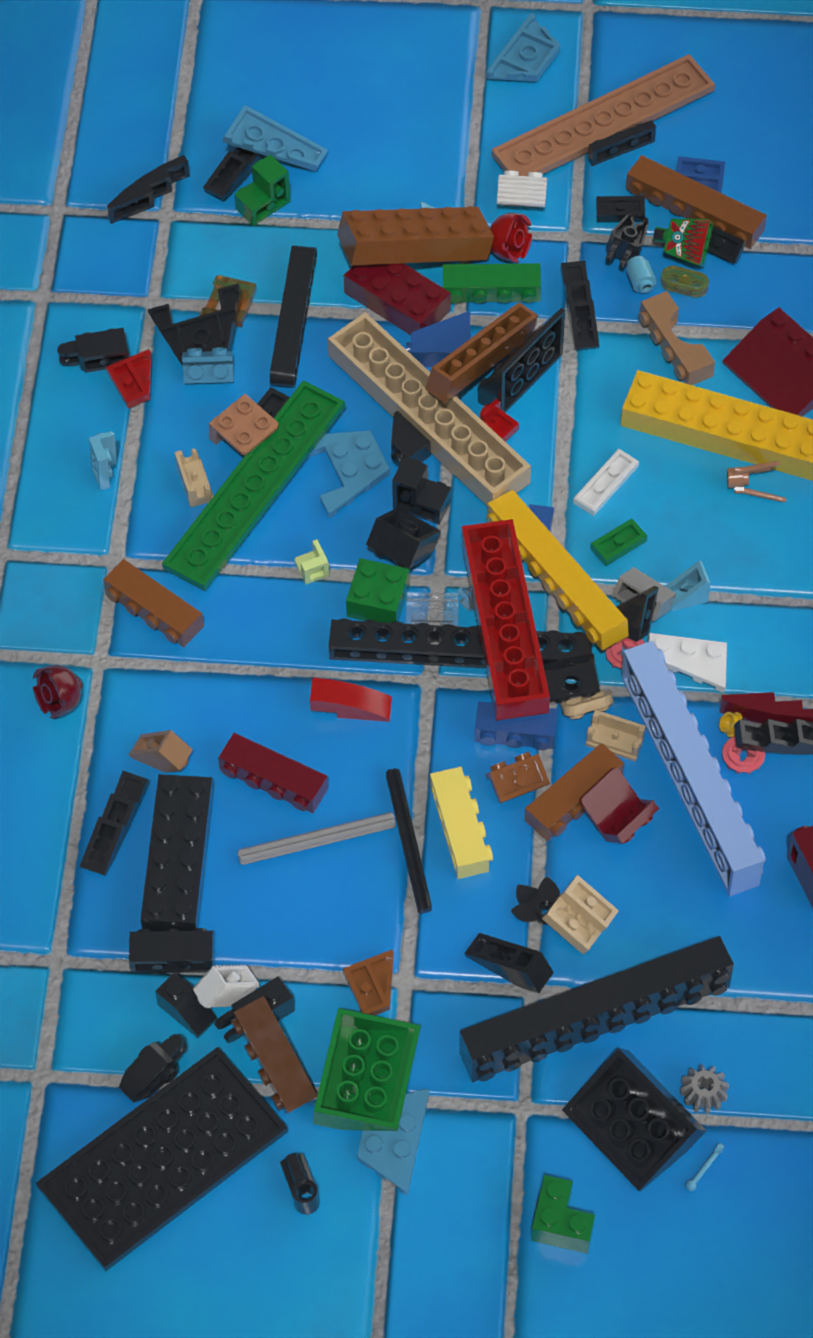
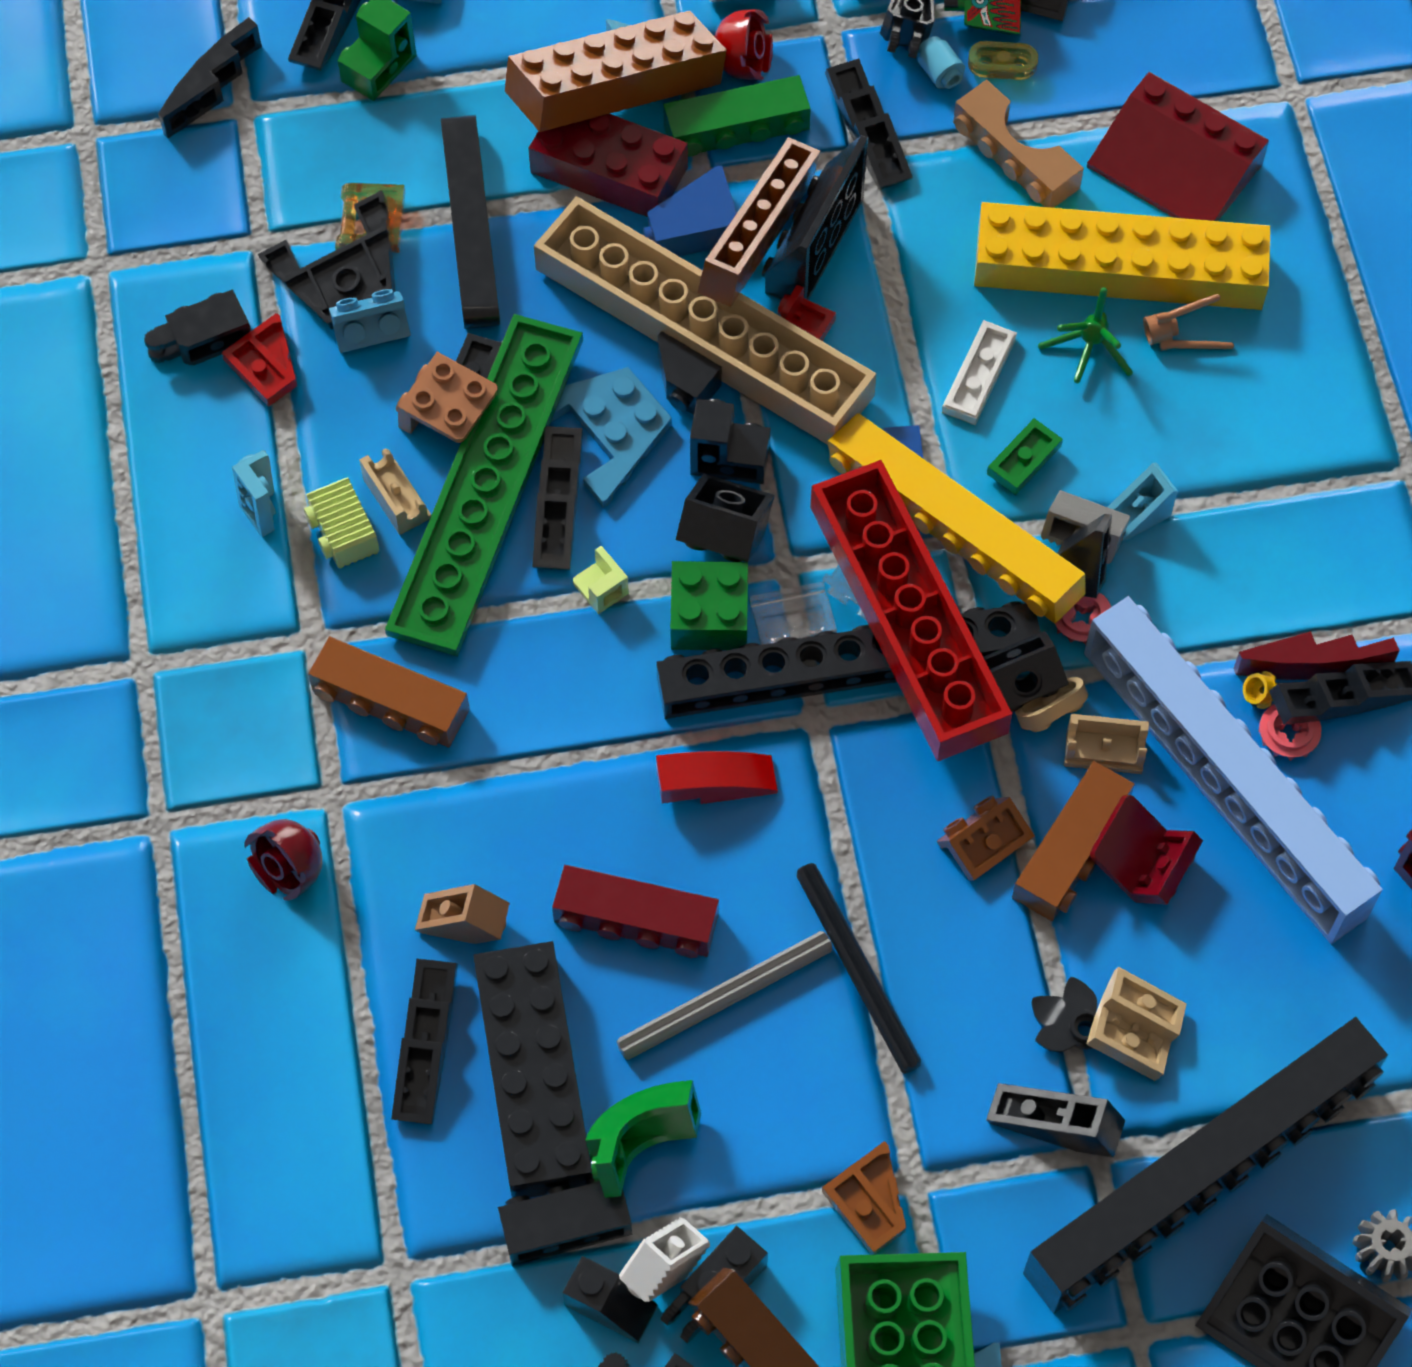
camera: 15 degrees left, 5 degrees up
(153, 490) = (342, 523): none -> yellowish green brick
(234, 903) = (638, 1123): none -> green arch
(299, 504) = (557, 498): none -> black slope
(459, 822) = (925, 924): light yellow brick -> none
(526, 731) = (991, 763): blue brick -> none
(689, 470) = (1093, 331): none -> green plant
(695, 657) = (1181, 603): white wing -> none

